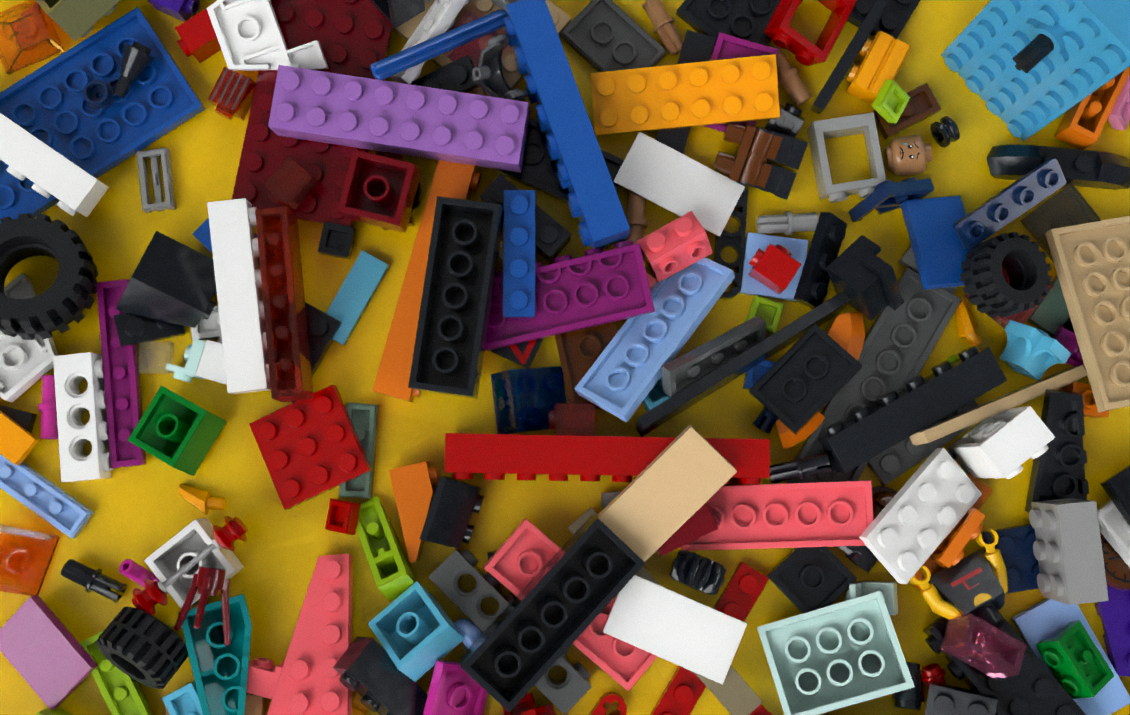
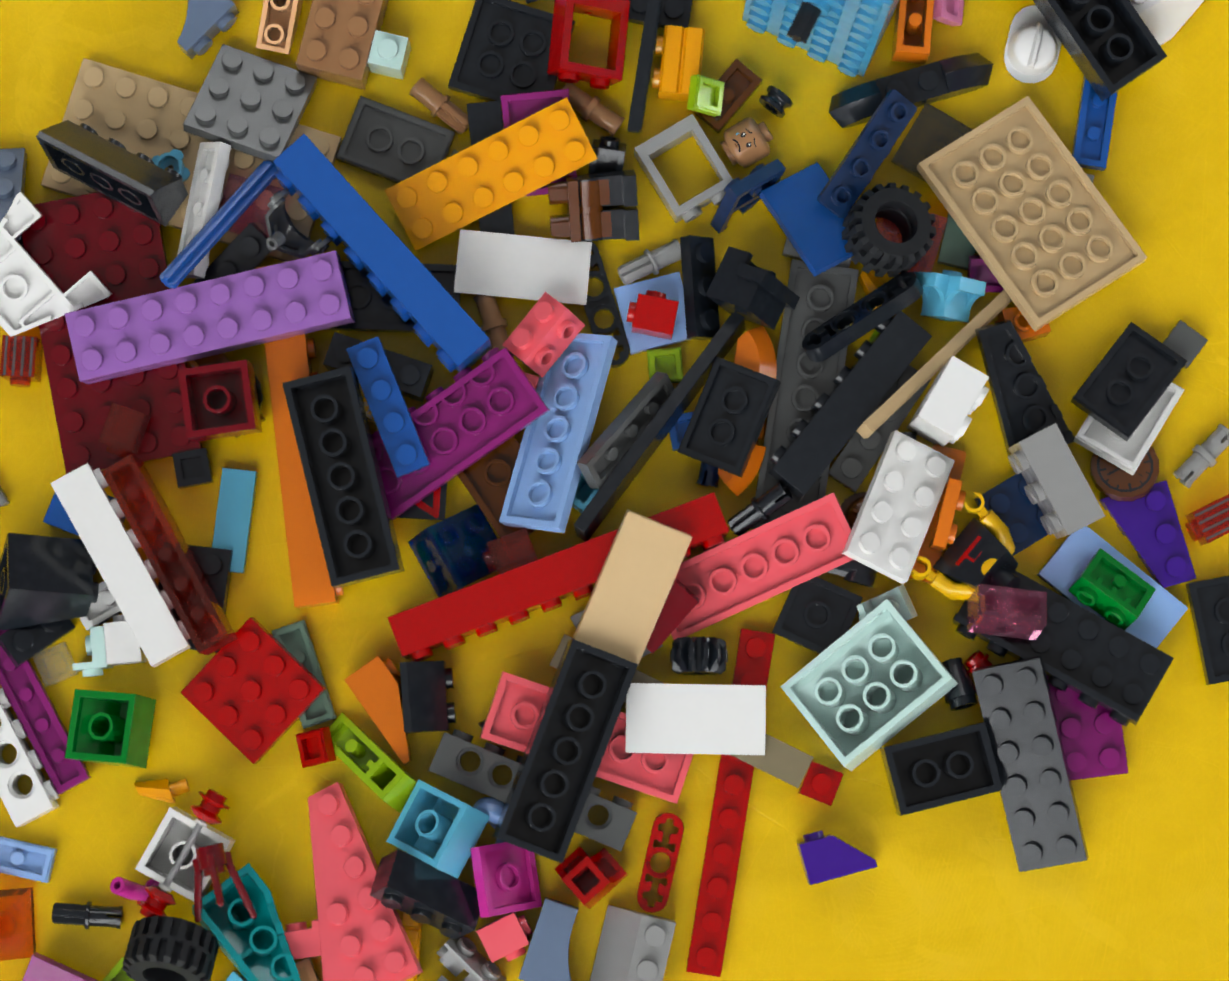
camera: 20 degrees left, 0 degrees up
(986, 332) = (892, 297): none -> black beam

